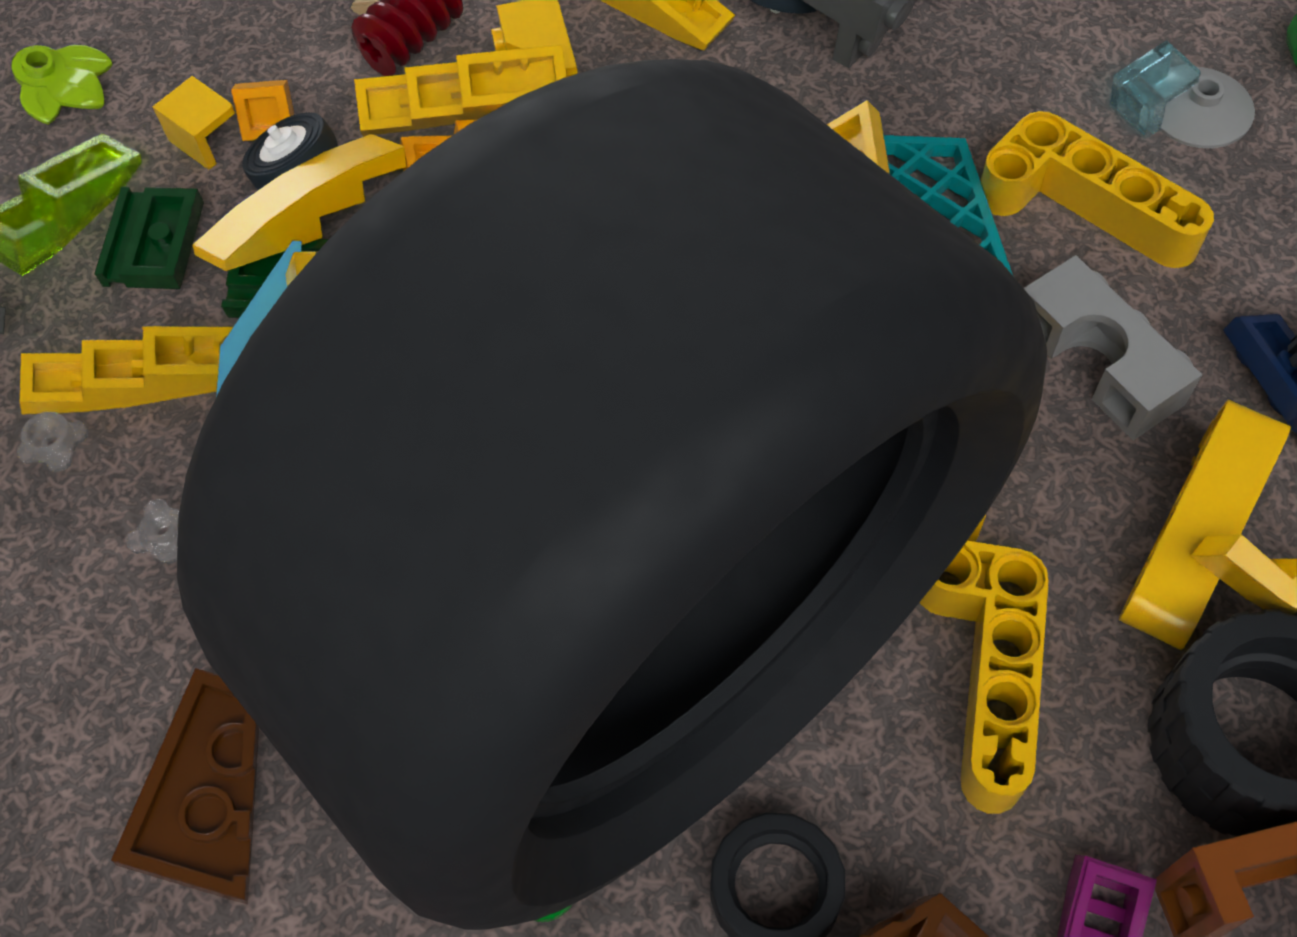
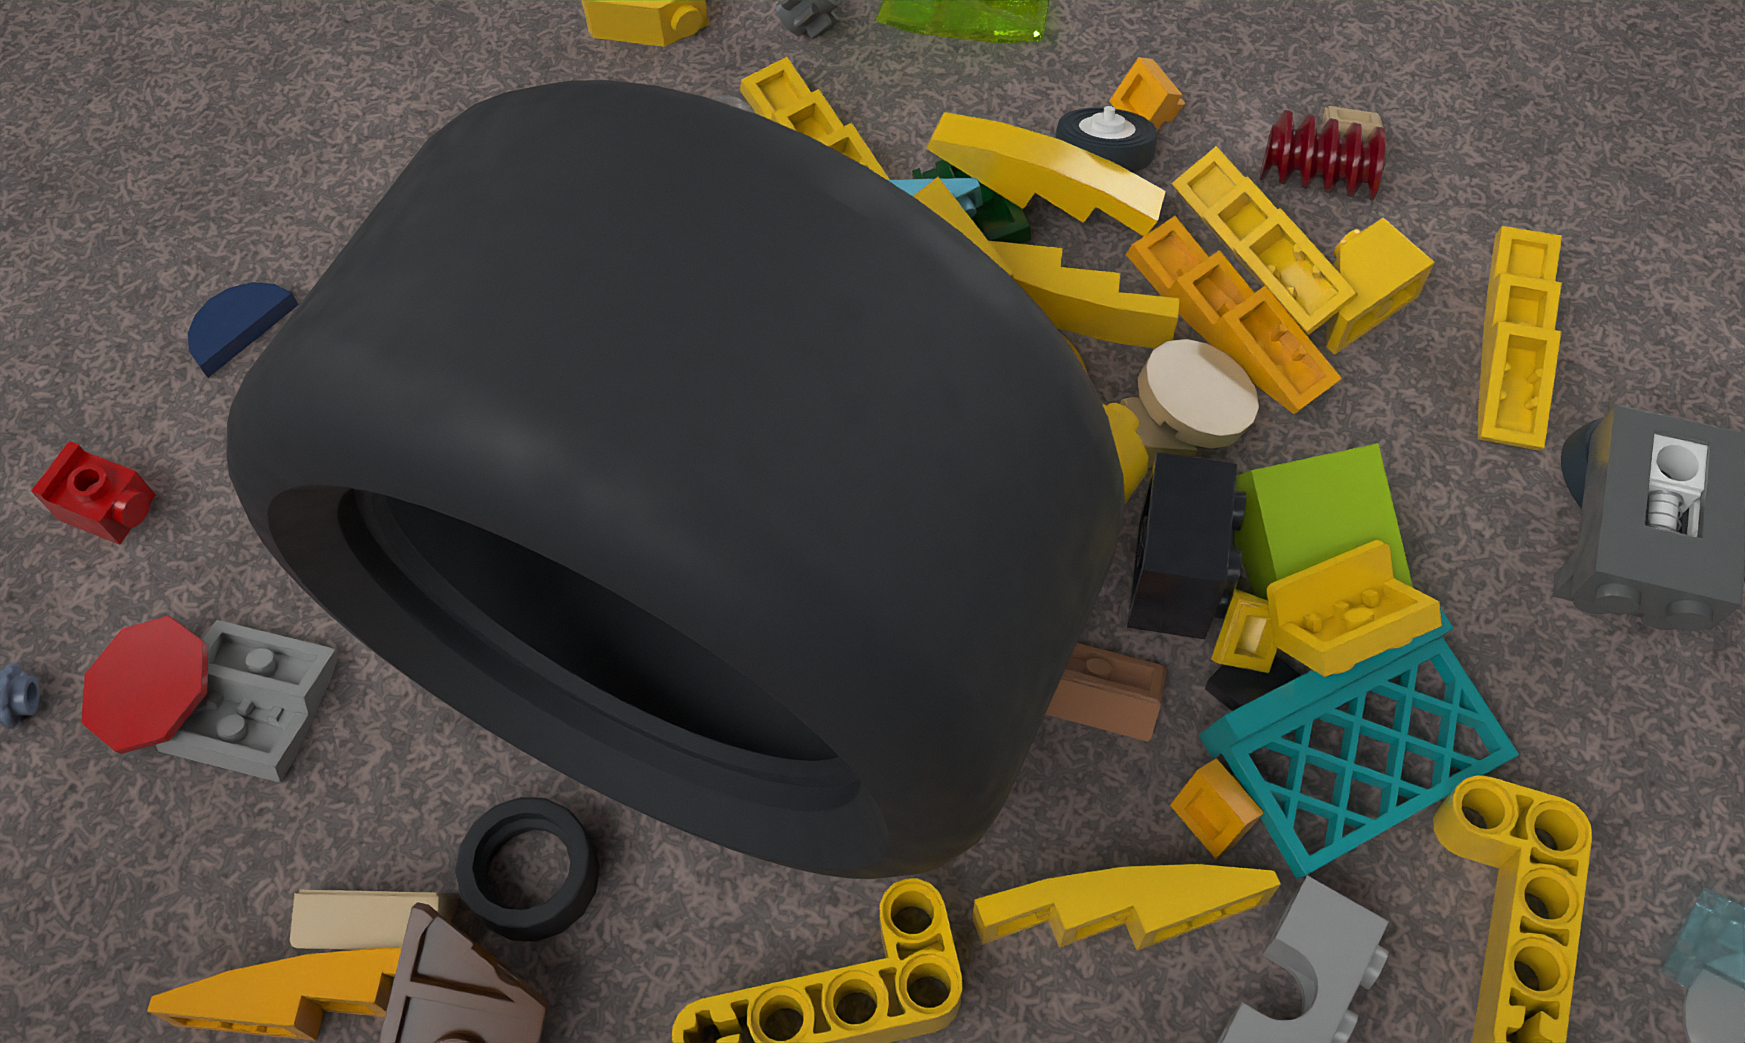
camera: 65 degrees right, 0 degrees up
(150, 238) = (960, 81): dark green plate -> none
(190, 116) = (1101, 46): yellow panel -> none

